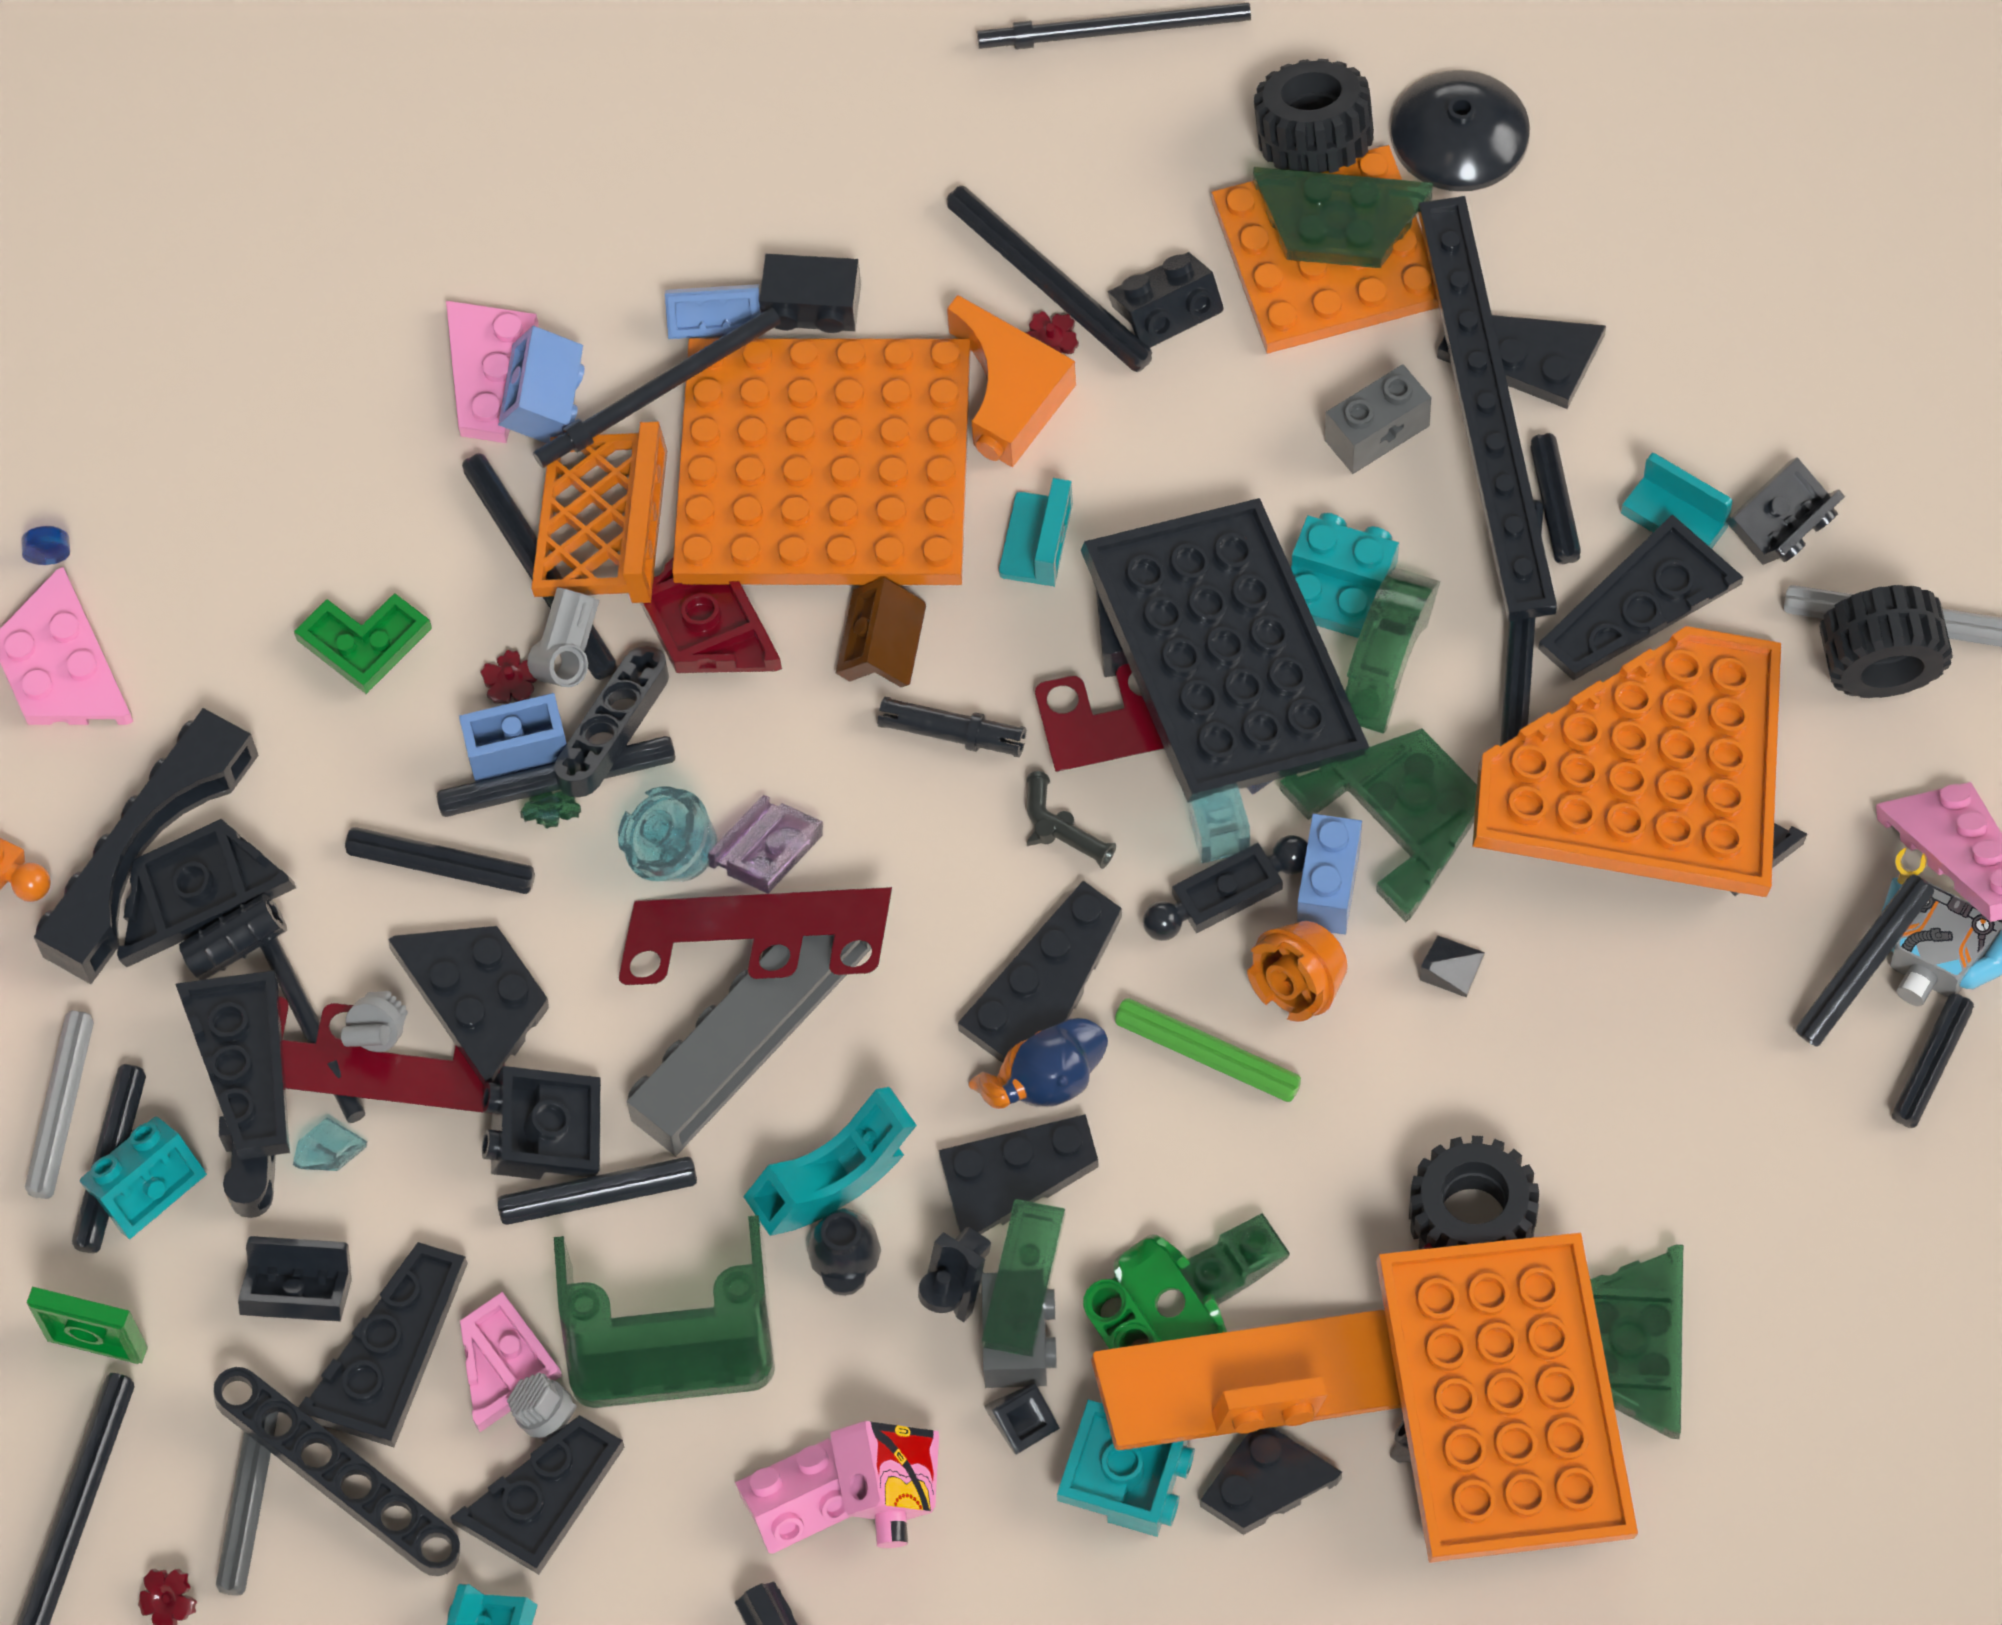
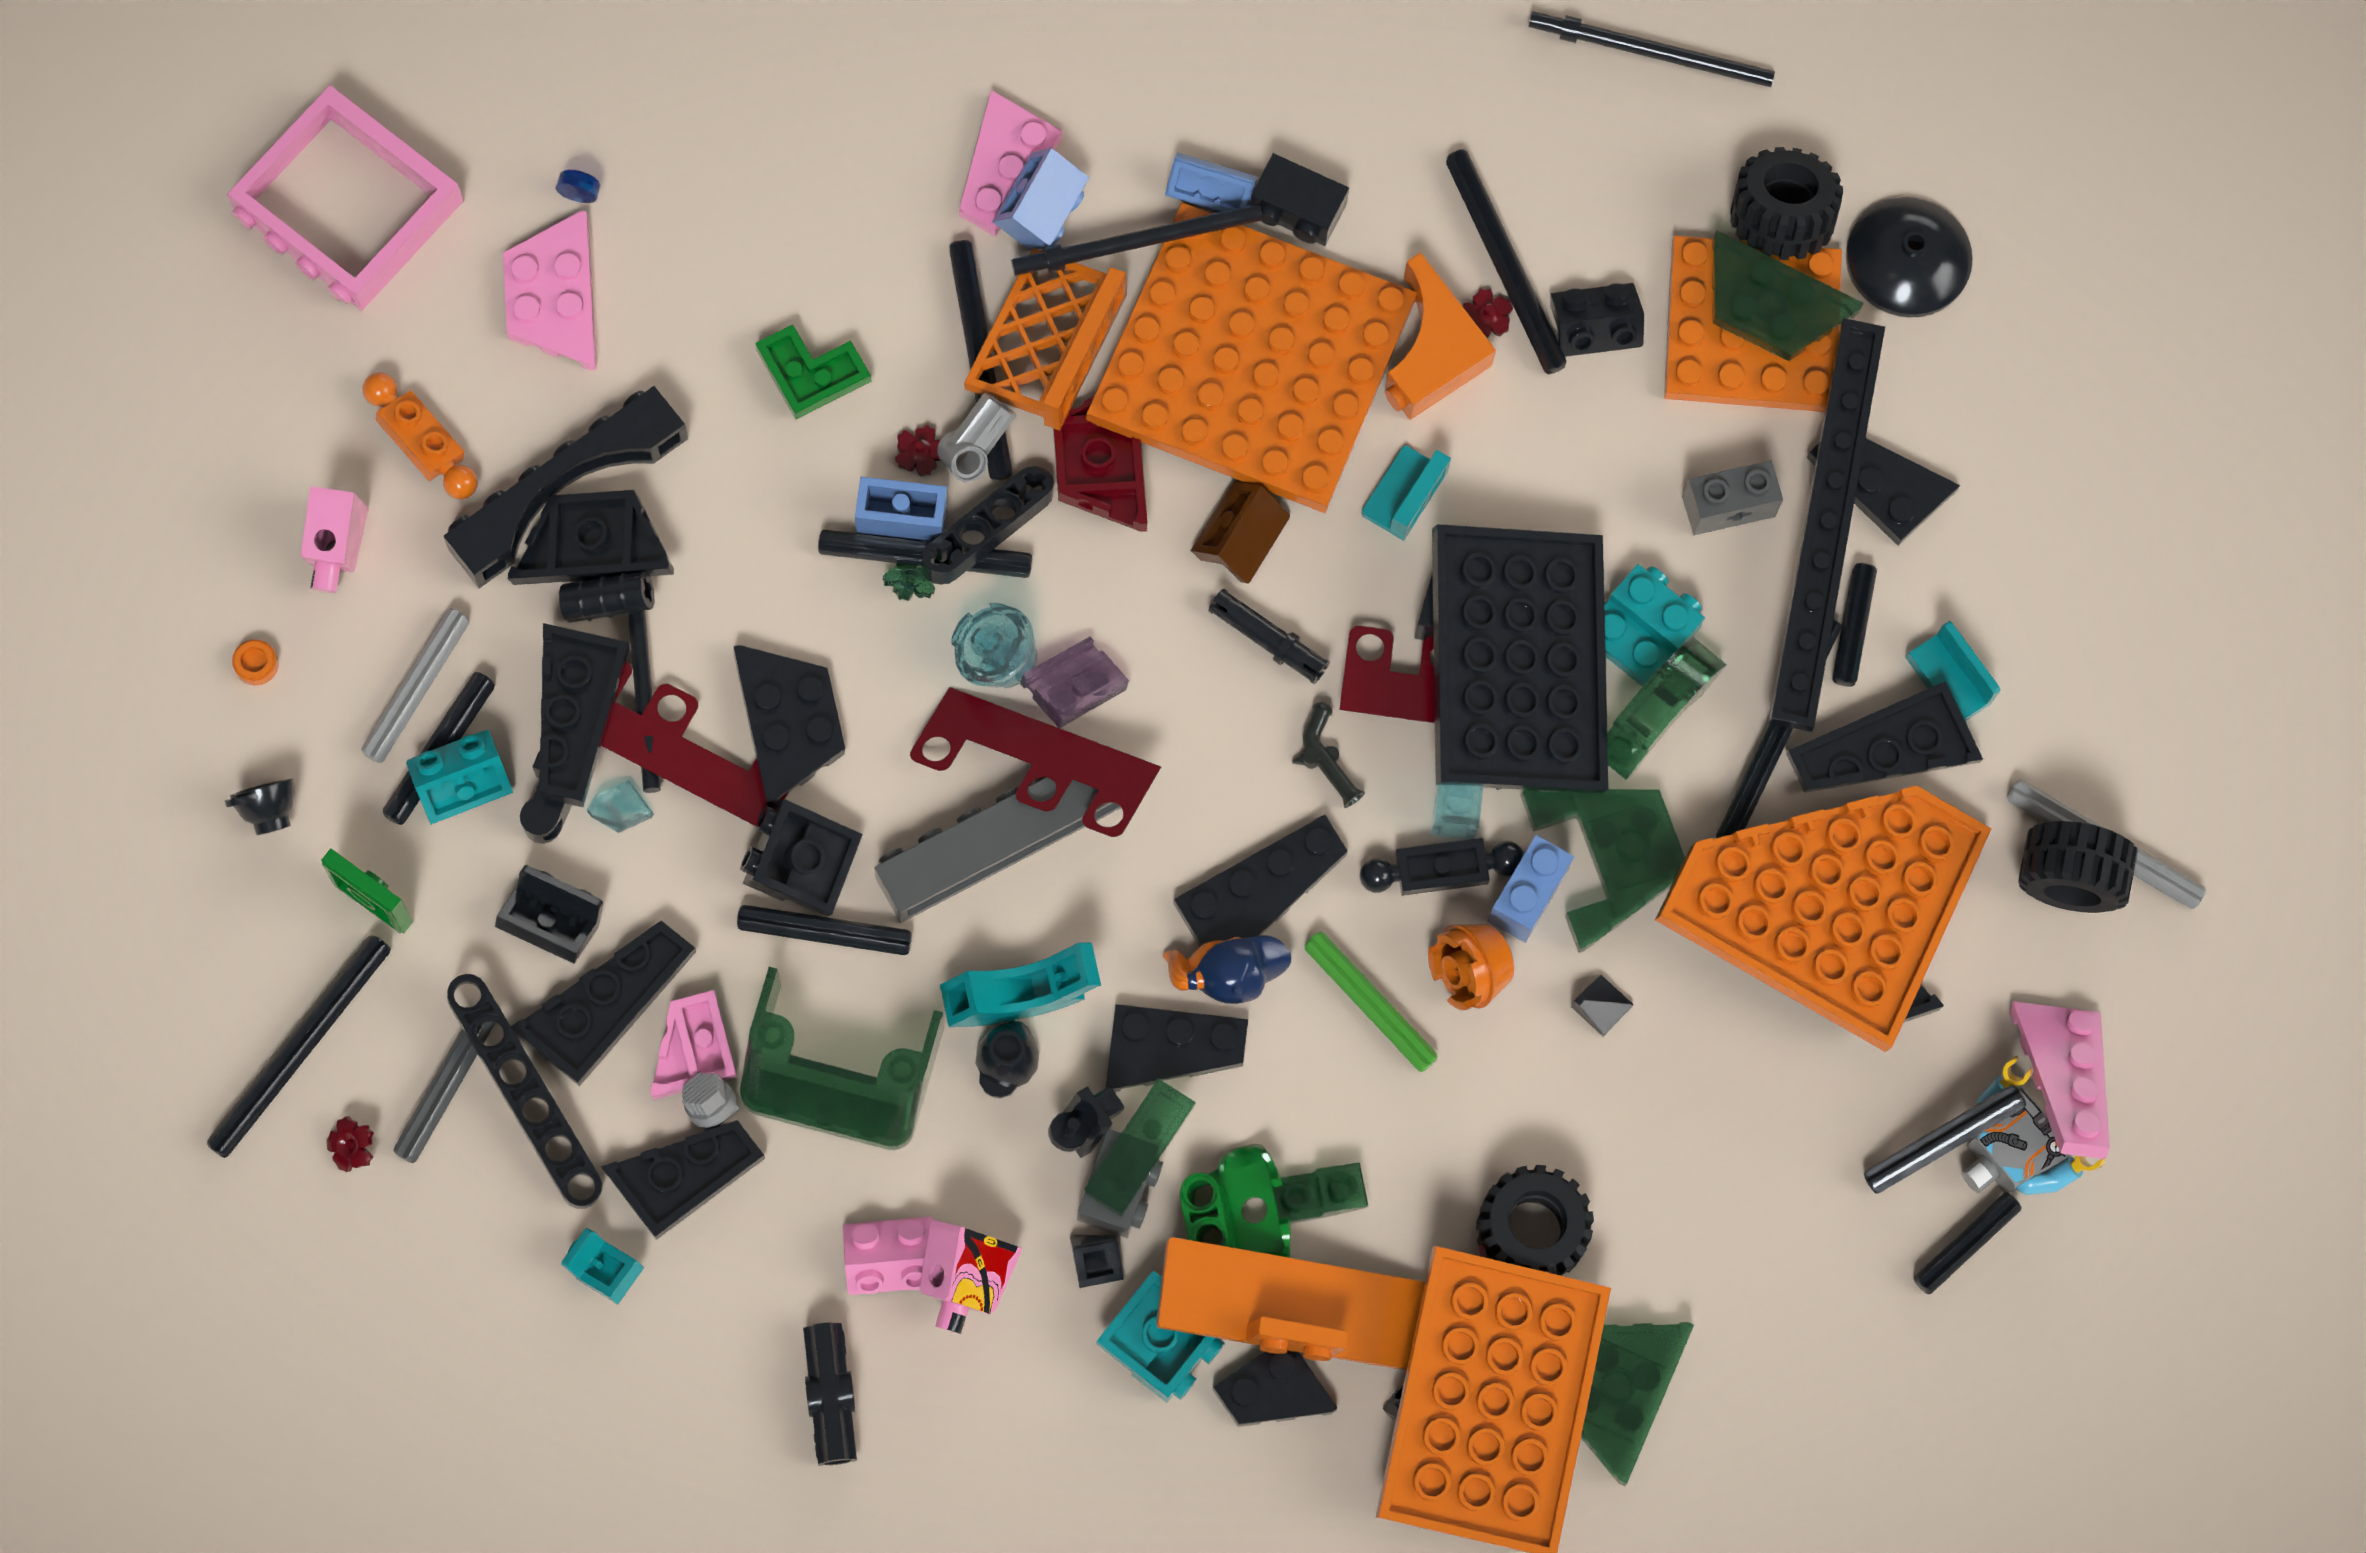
camera: 10 degrees right, 10 degrees up
(374, 1022) = (694, 717): light grey piece -> none
(439, 860) = (802, 591): black axle -> none
(1784, 513) = (2042, 714): black bracket -> none

